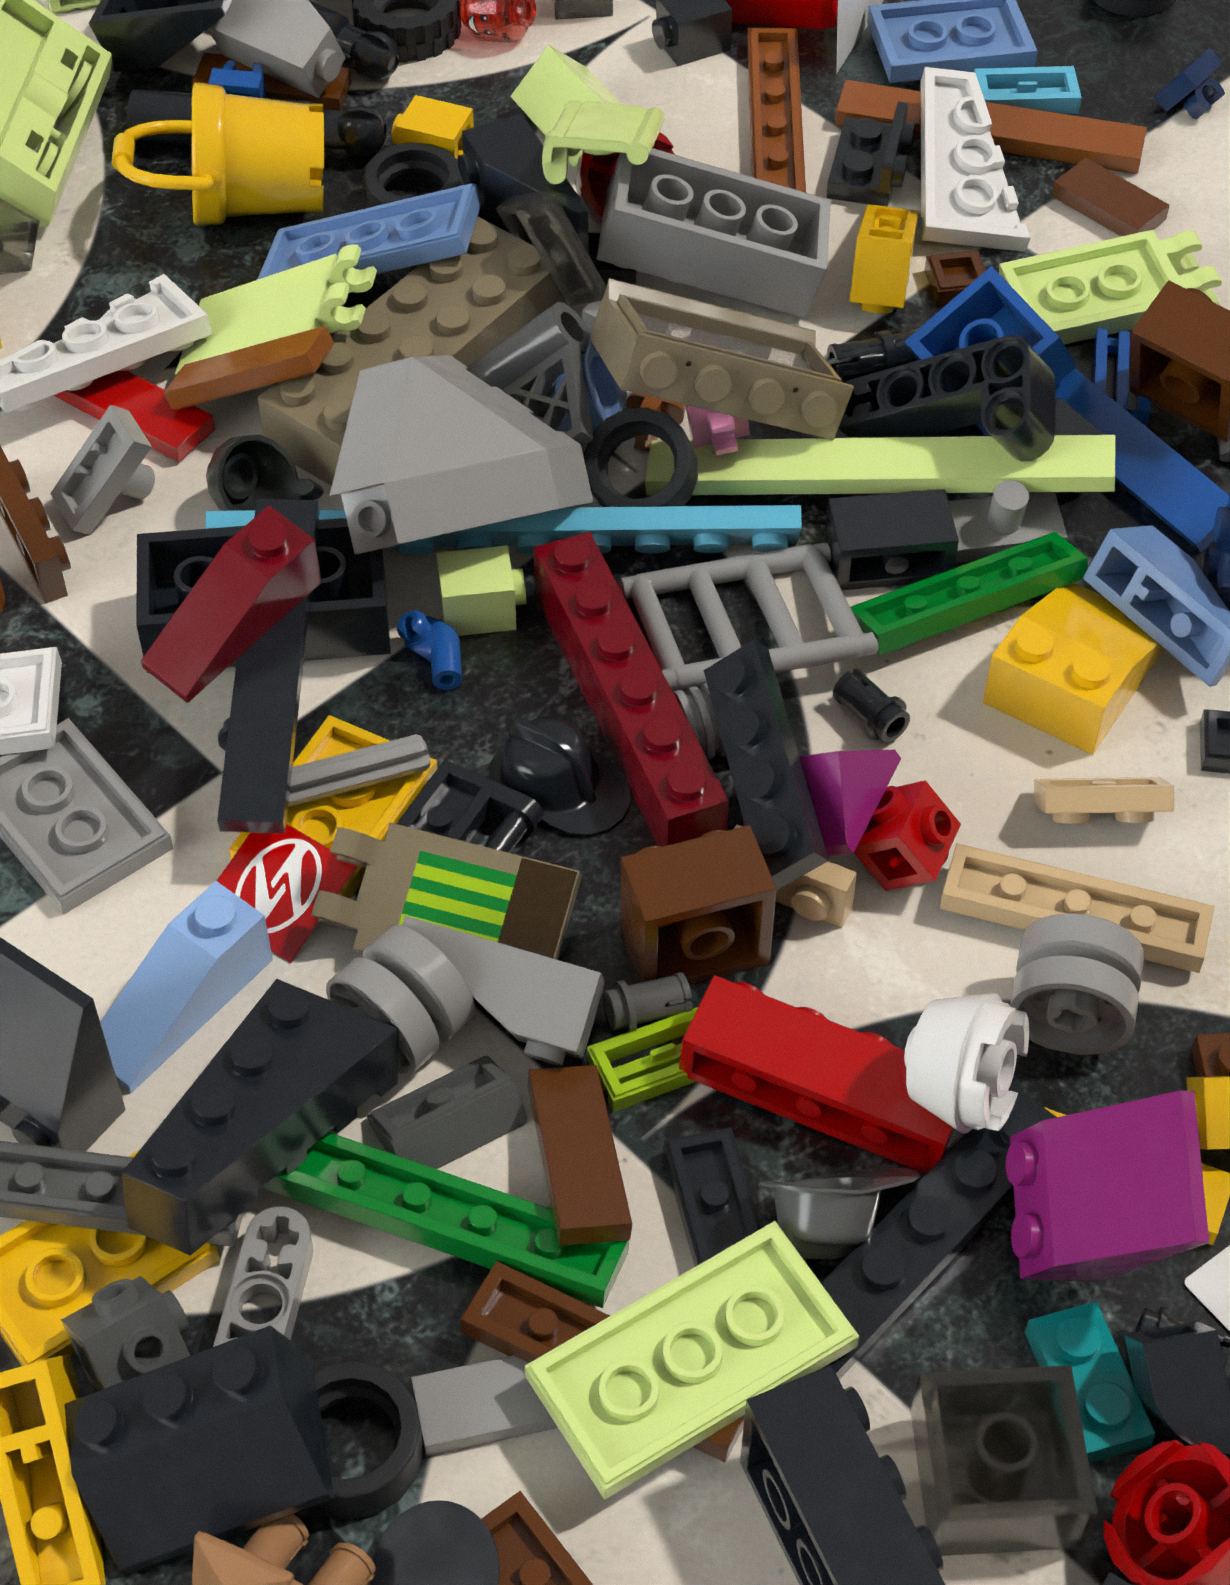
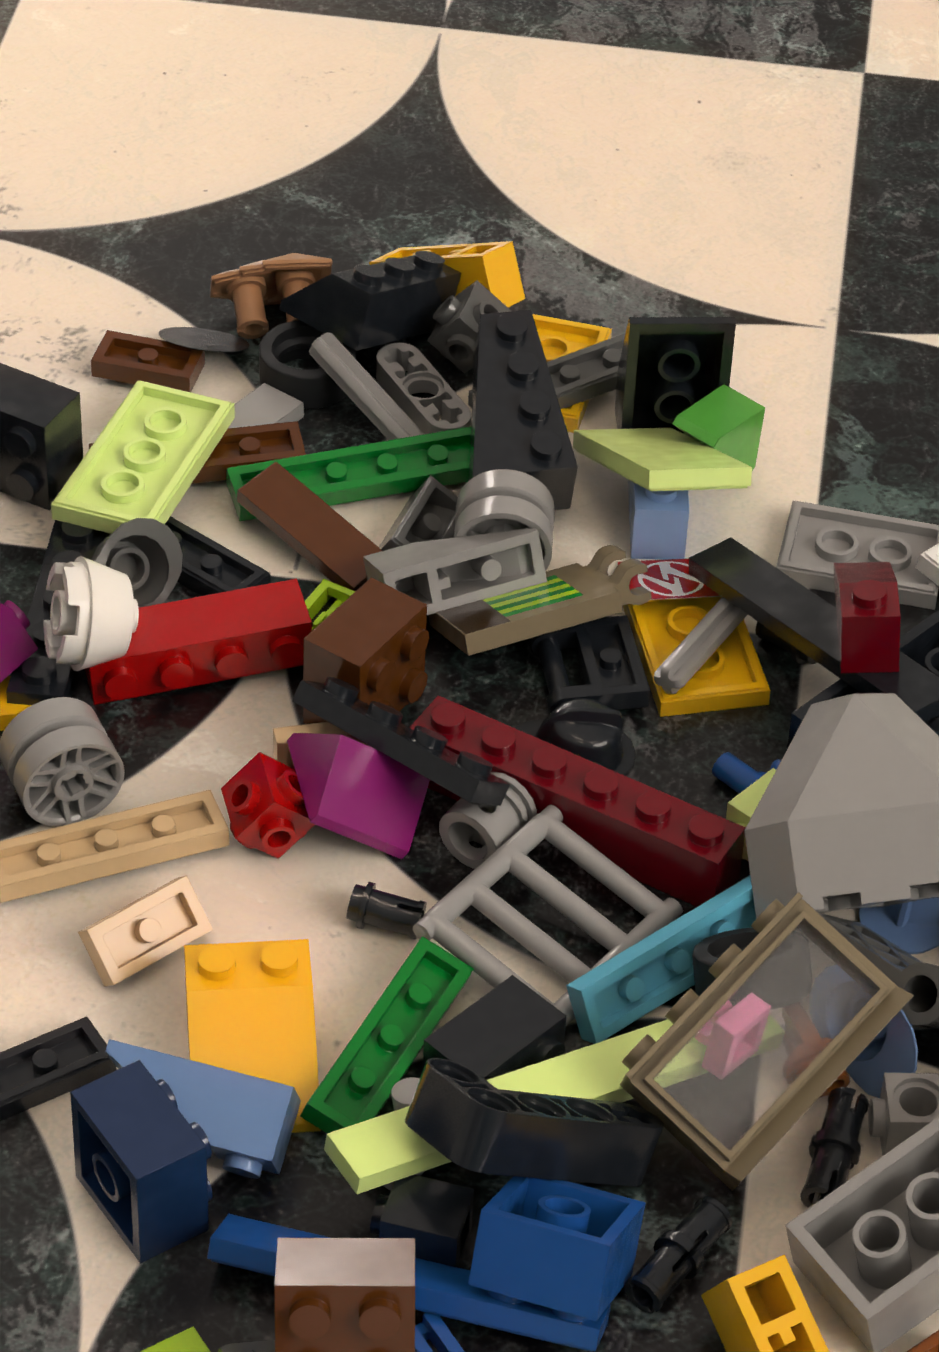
camera: 140 degrees right, 10 degrees down
(76, 950) = (726, 423): none -> bright green slope
(181, 941) = (662, 459): none -> yellowish green tile
(349, 1305) = (362, 388): none -> light grey axle

